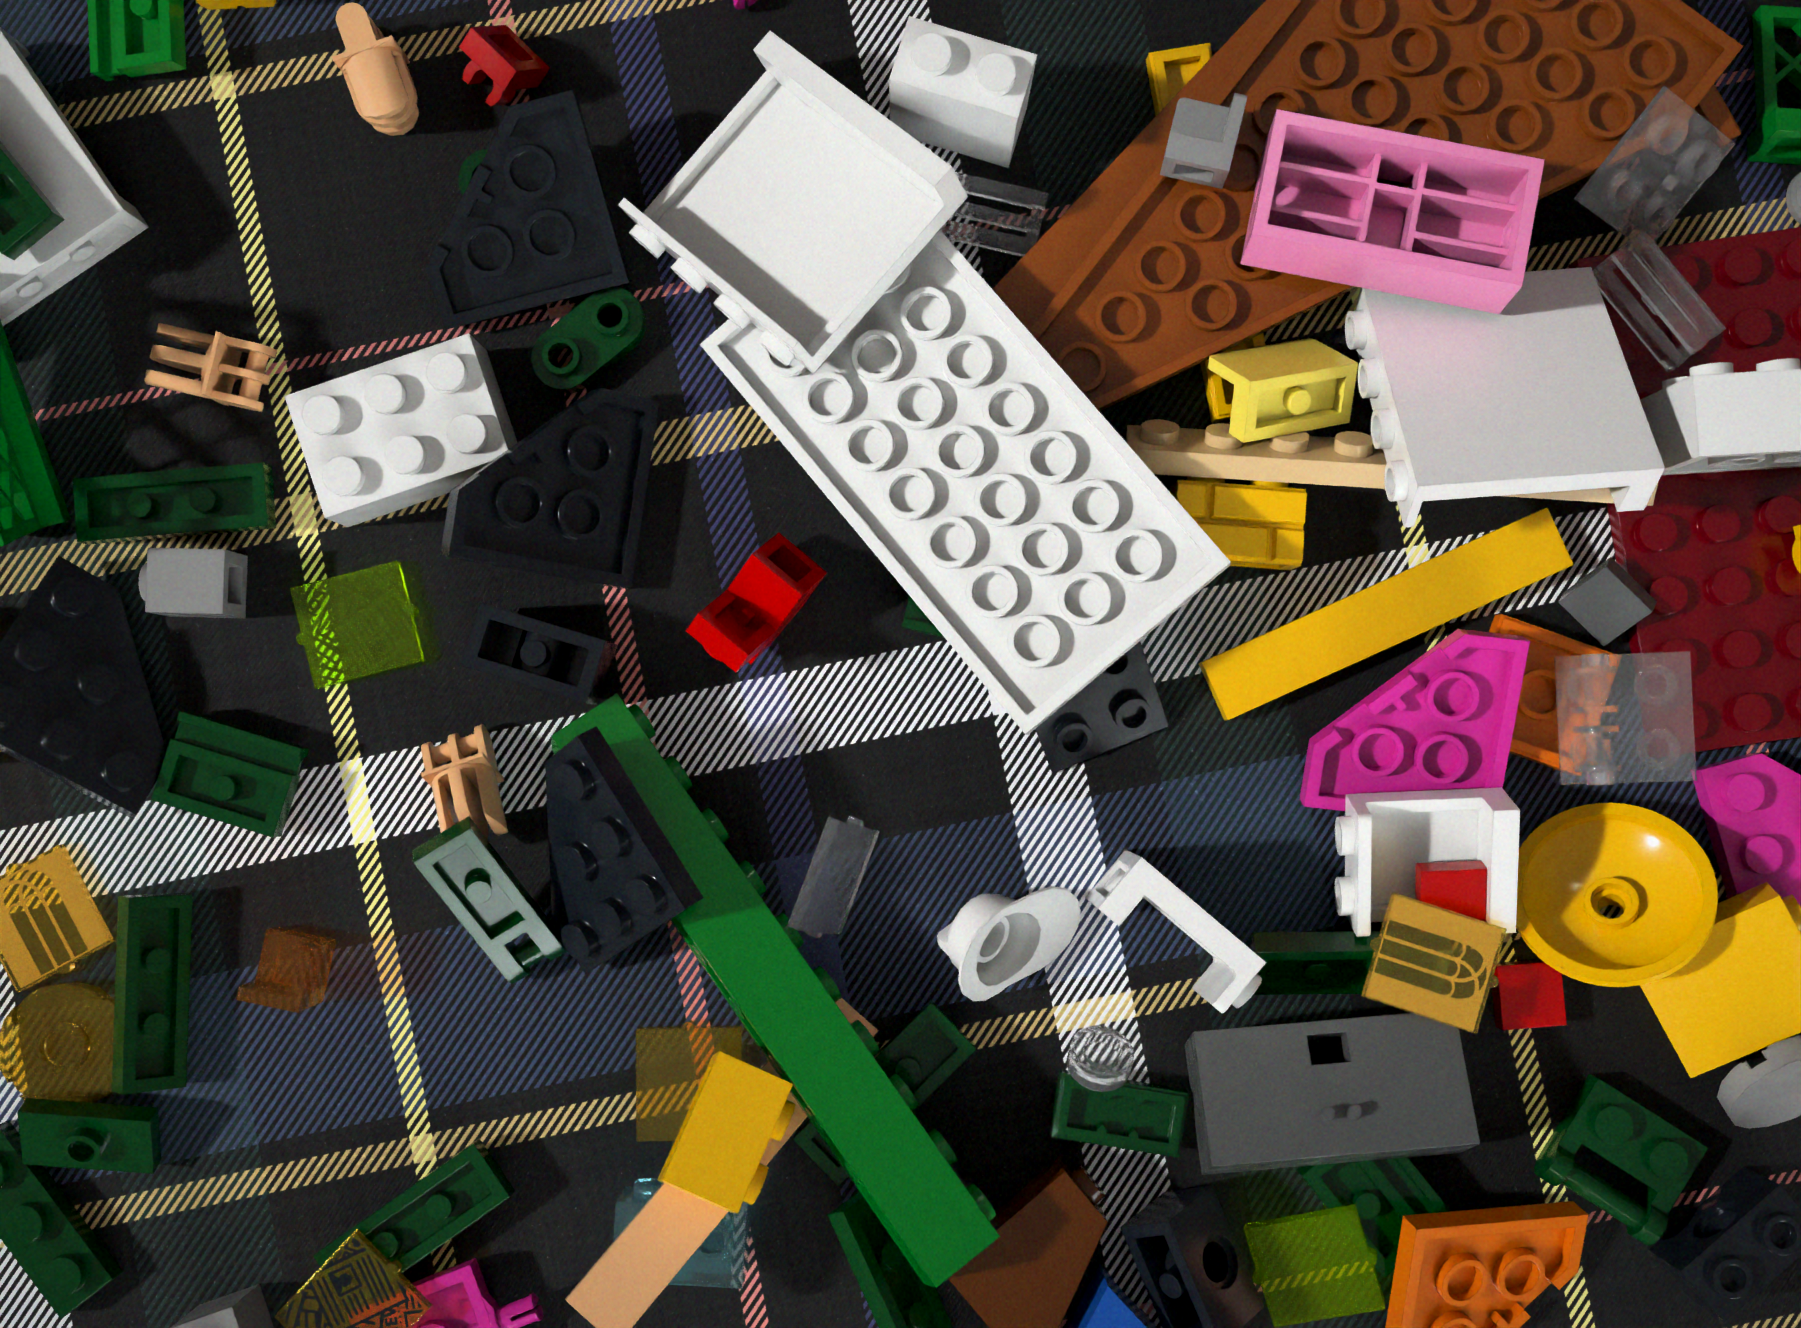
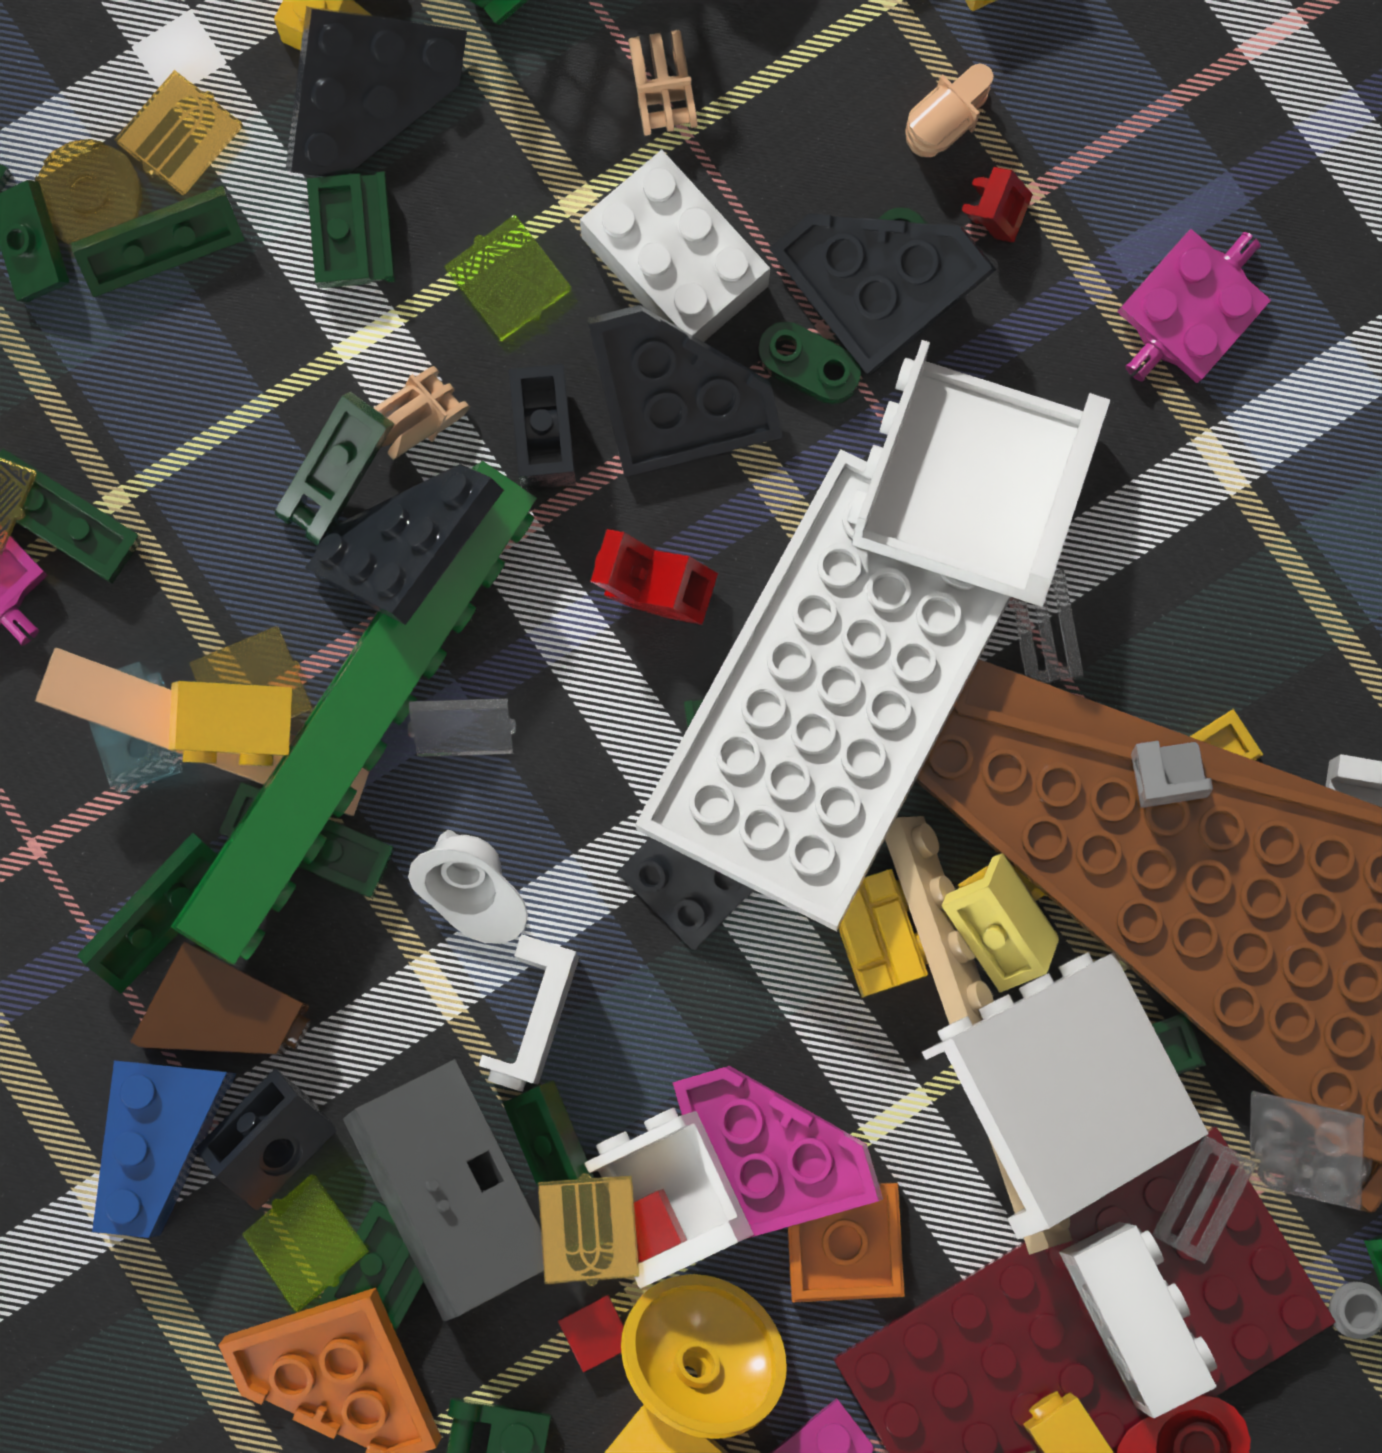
camera: 65 degrees right, 5 degrees down
(174, 503) = (544, 100): dark green plate -> none
(194, 583) = (488, 141): light grey brick -> none
(290, 971) = (217, 339): clear orange panel -> none
(960, 91) = (1124, 567): white brick -> none
(1100, 1058) = (402, 1000): clear tile -> none
(1130, 1118) = (364, 1035): dark green plate -> none
(1385, 614) = (859, 1089): yellow tile -> none
(1445, 239) = (1146, 894): bright pink brick -> none
(1607, 601) = (943, 1264): dark grey tile -> none
(1625, 718) = (852, 1313): clear hinge -> none

